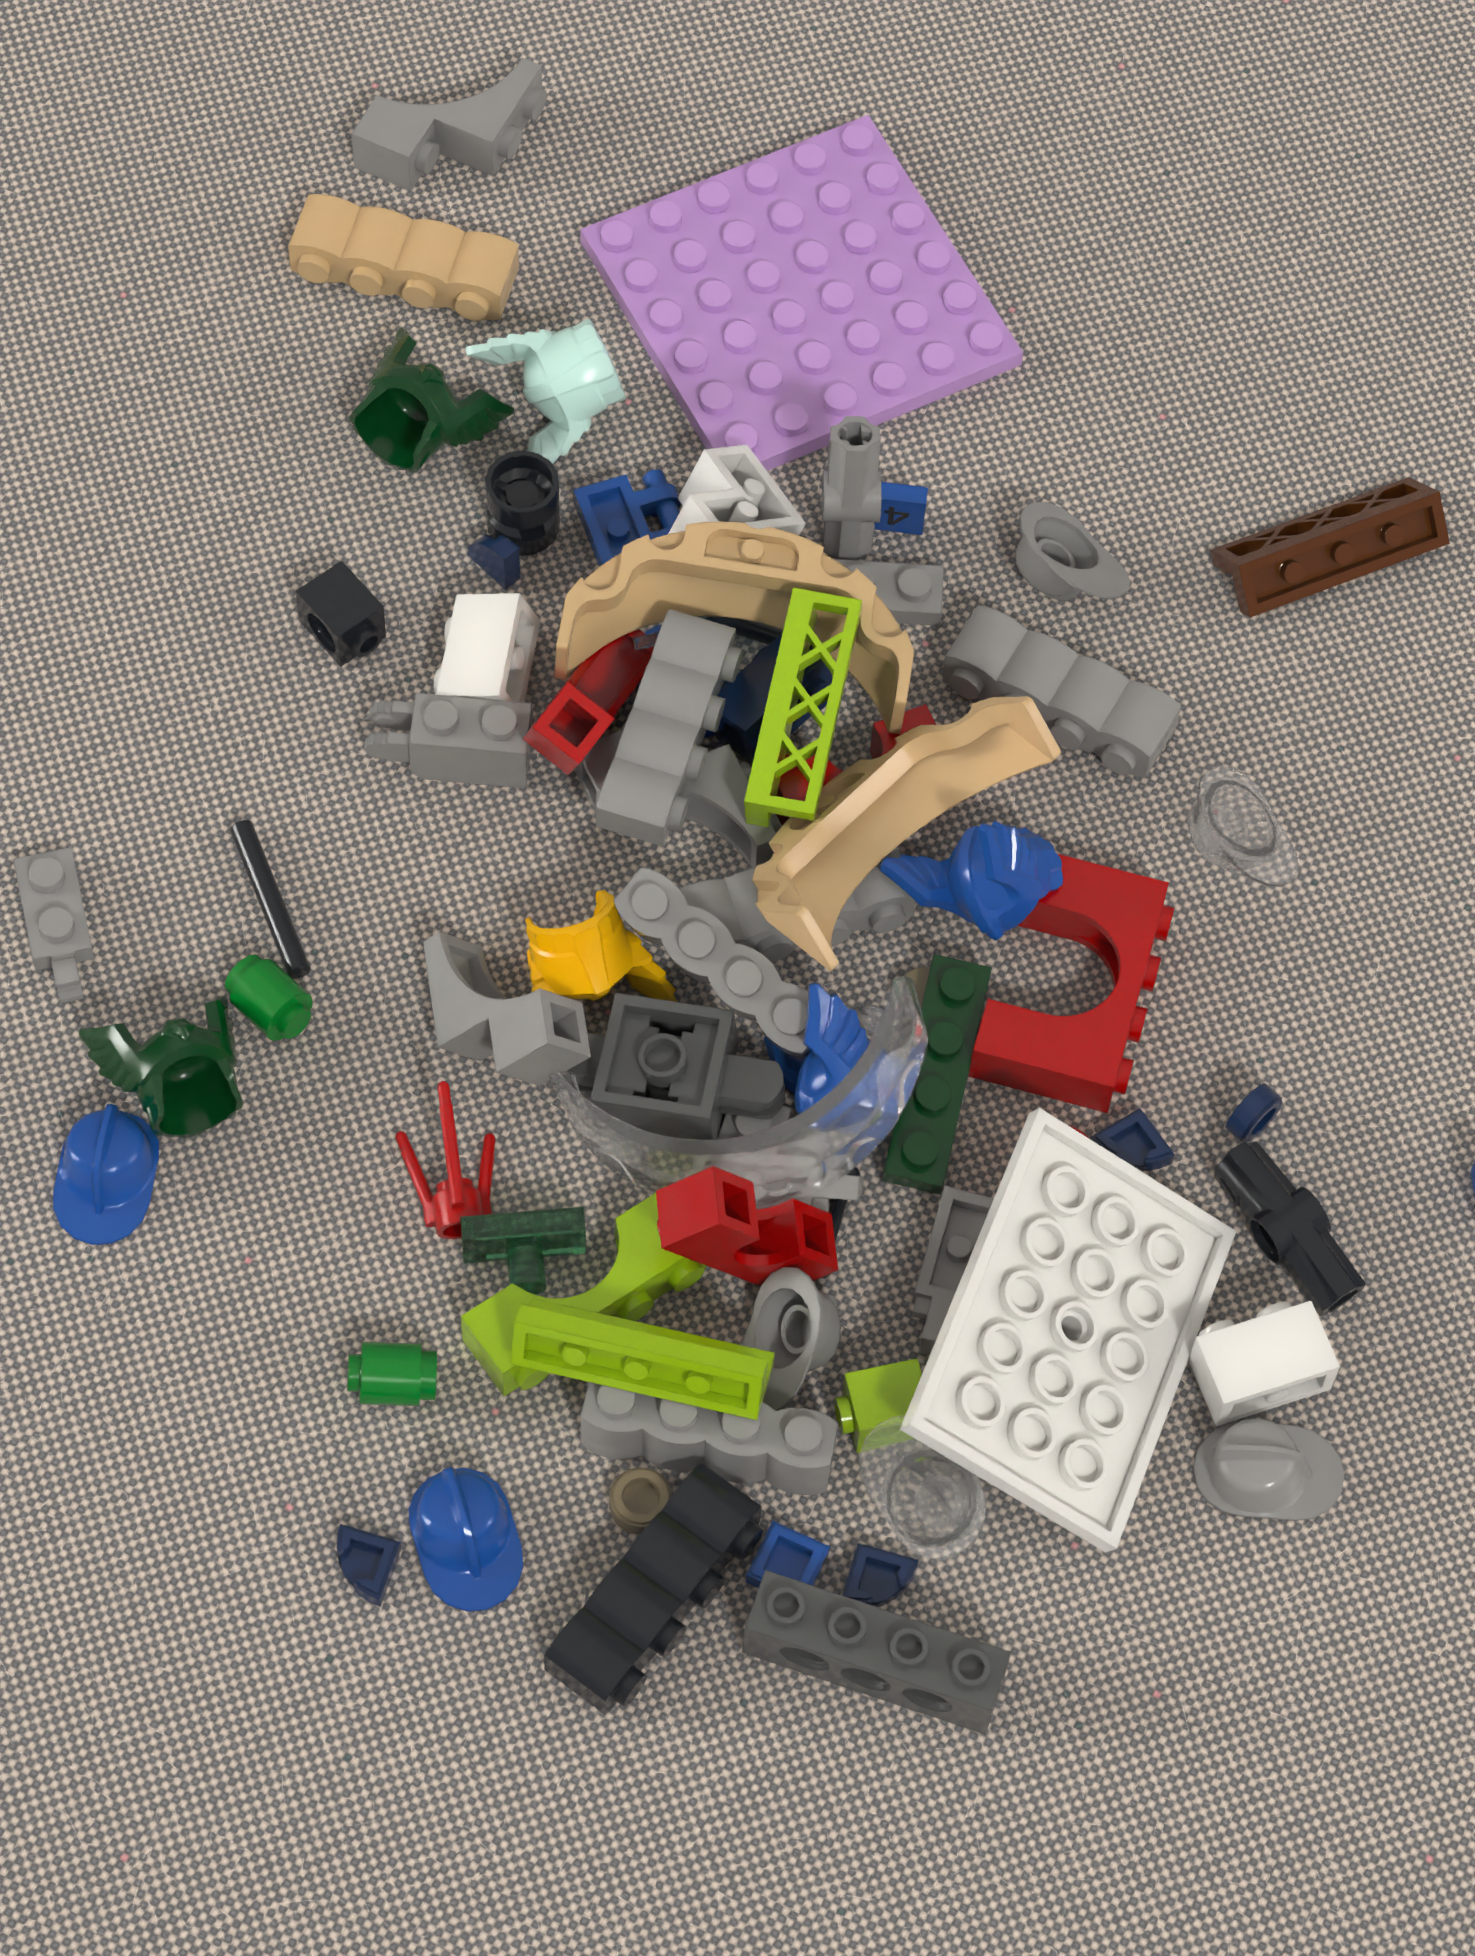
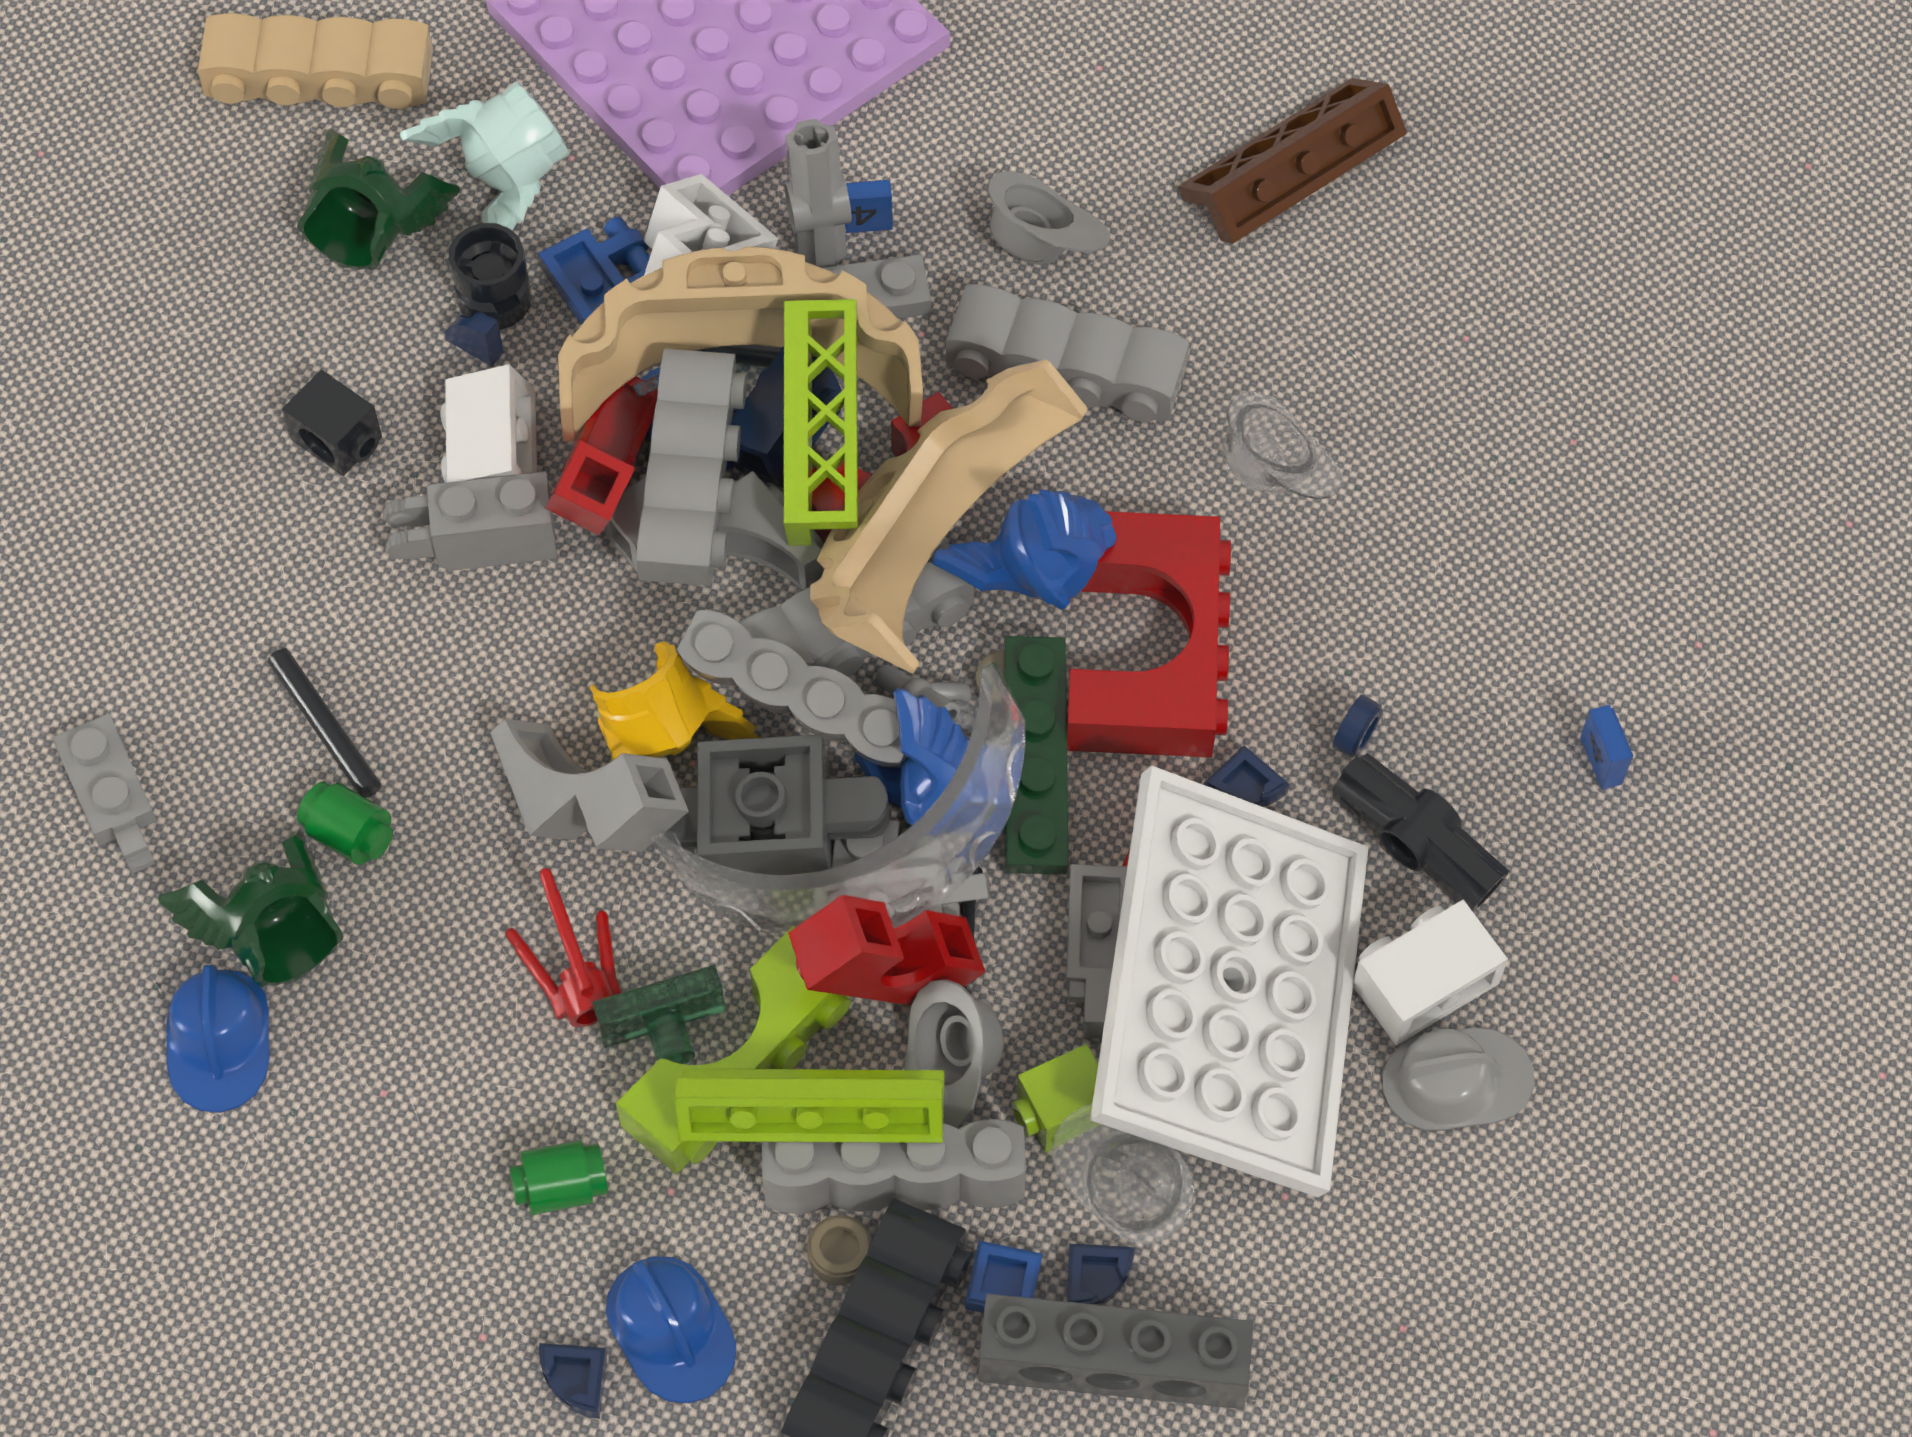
camera: 10 degrees left, 0 degrees up
(853, 995) = (937, 692): none -> light grey piece

